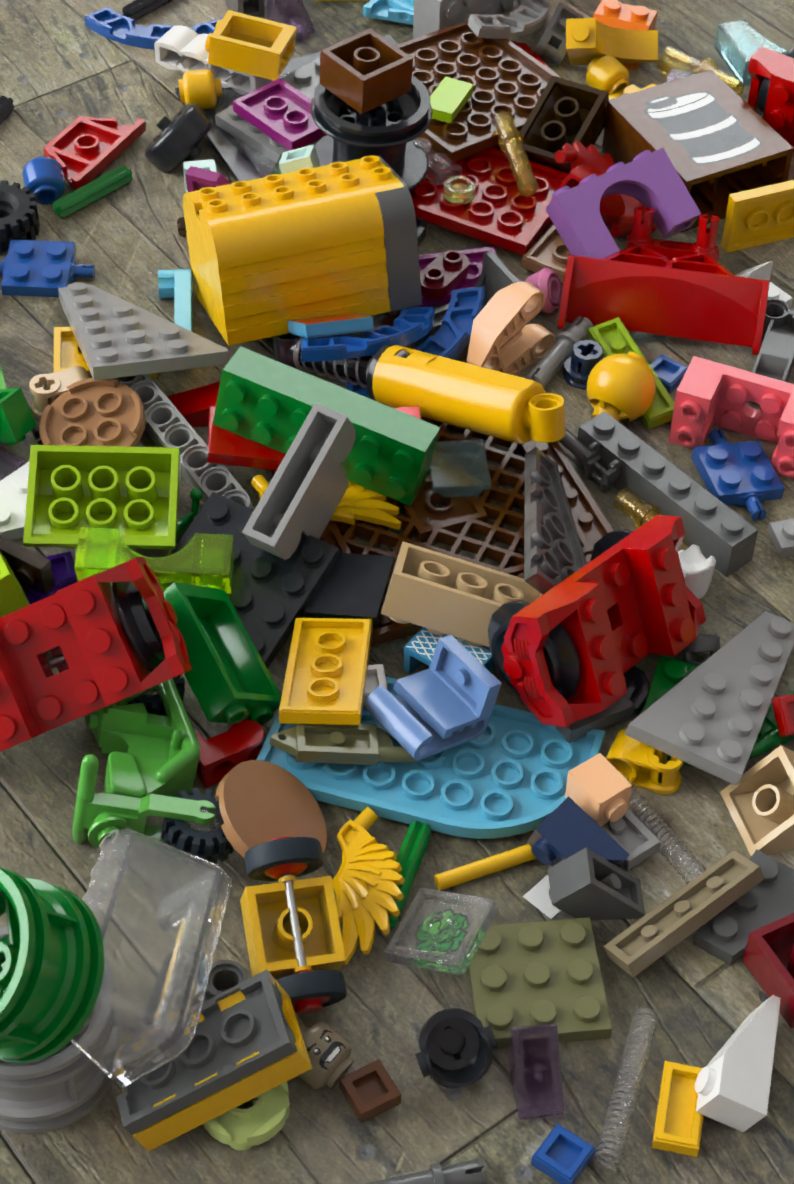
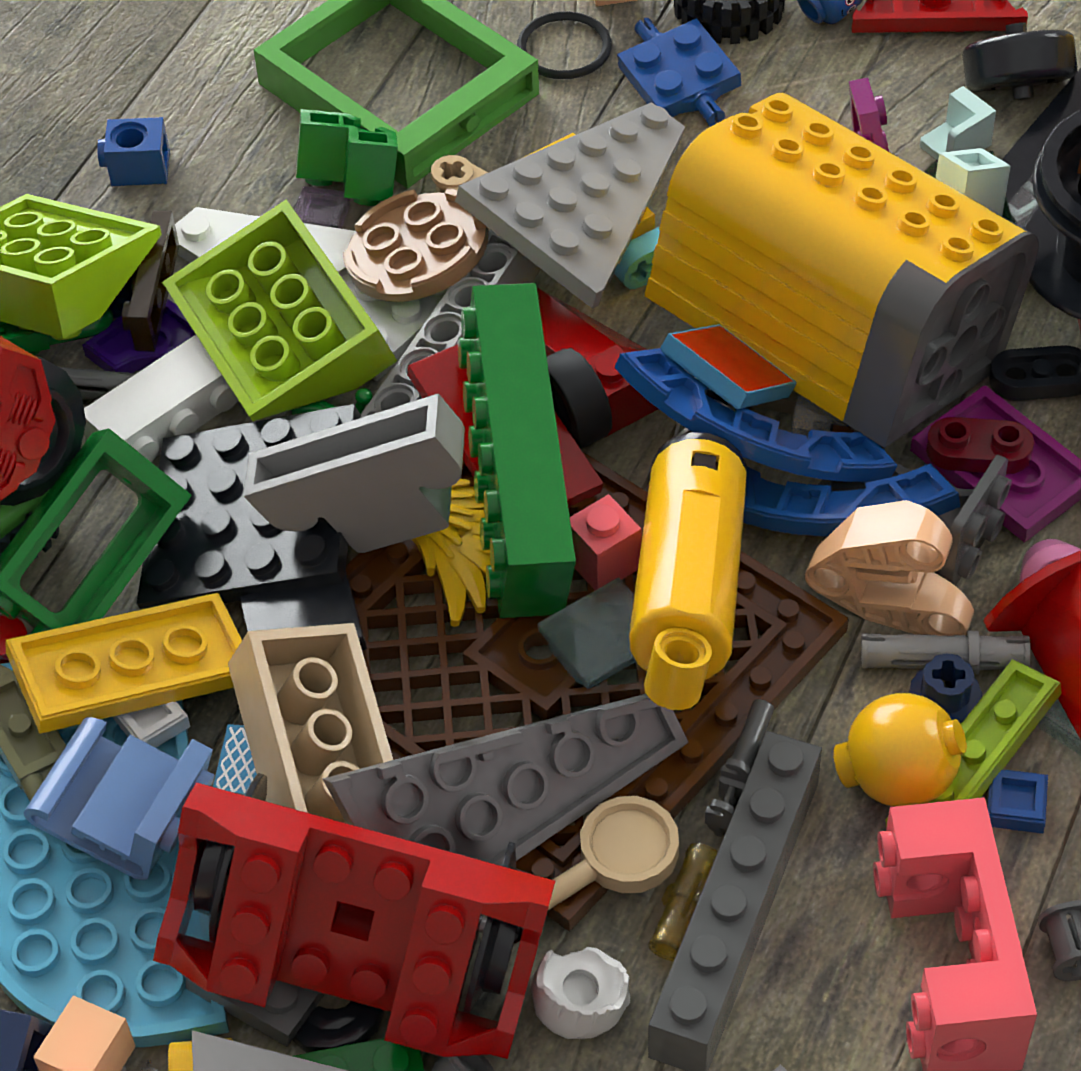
camera: 65 degrees right, 5 degrees up
(92, 191) = (861, 43): green axle -> none
(202, 562) = (173, 369): clear neon green arch -> none
(603, 512) = (624, 848): none -> tan piece
(738, 473) = (858, 980): blue plate -> none

